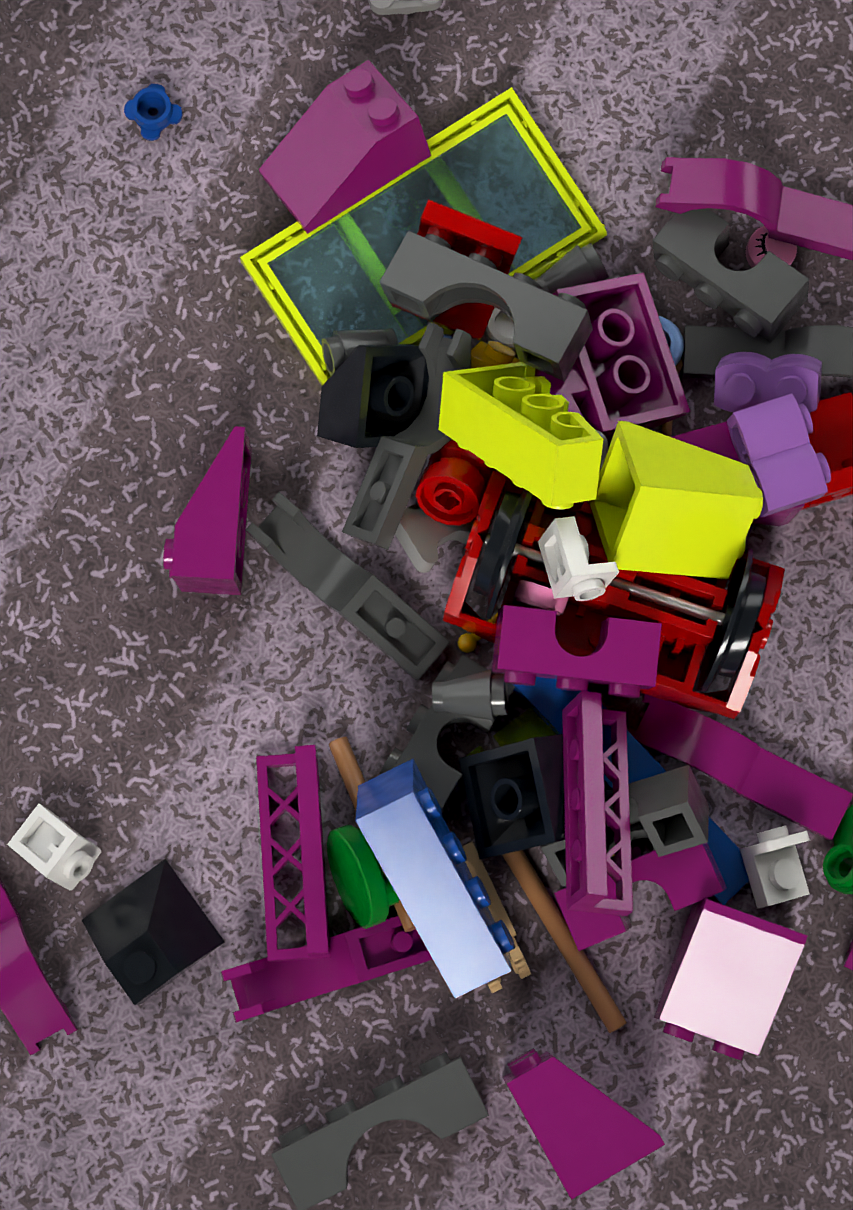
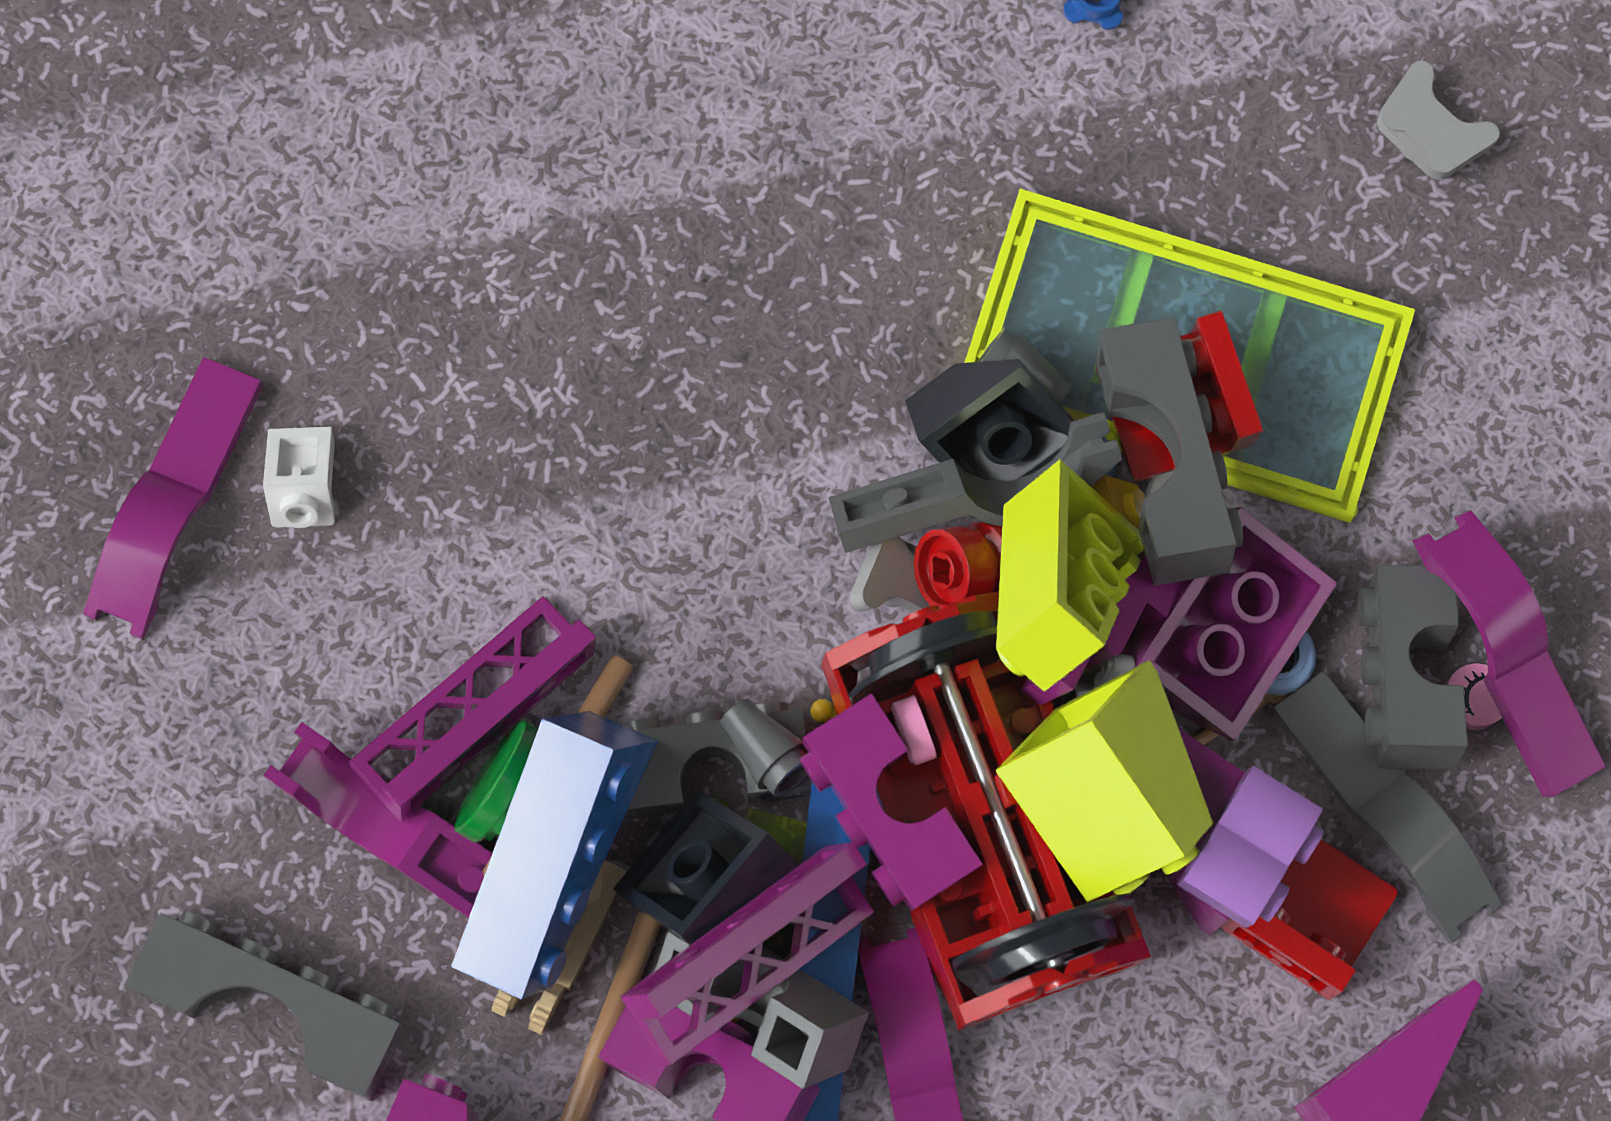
camera: 50 degrees right, 5 degrees down
(151, 932) = (289, 634): black slope -> none
(212, 527) = (736, 369): magenta slope -> none
(345, 147) = (1212, 199): magenta slope -> none
(348, 588) = (780, 551): dark grey piece -> none
(567, 565) = (965, 723): white bracket -> none
(574, 269) = (1286, 515): dark grey cone -> none
(752, 379) = (1321, 770): medium lavender brick -> none

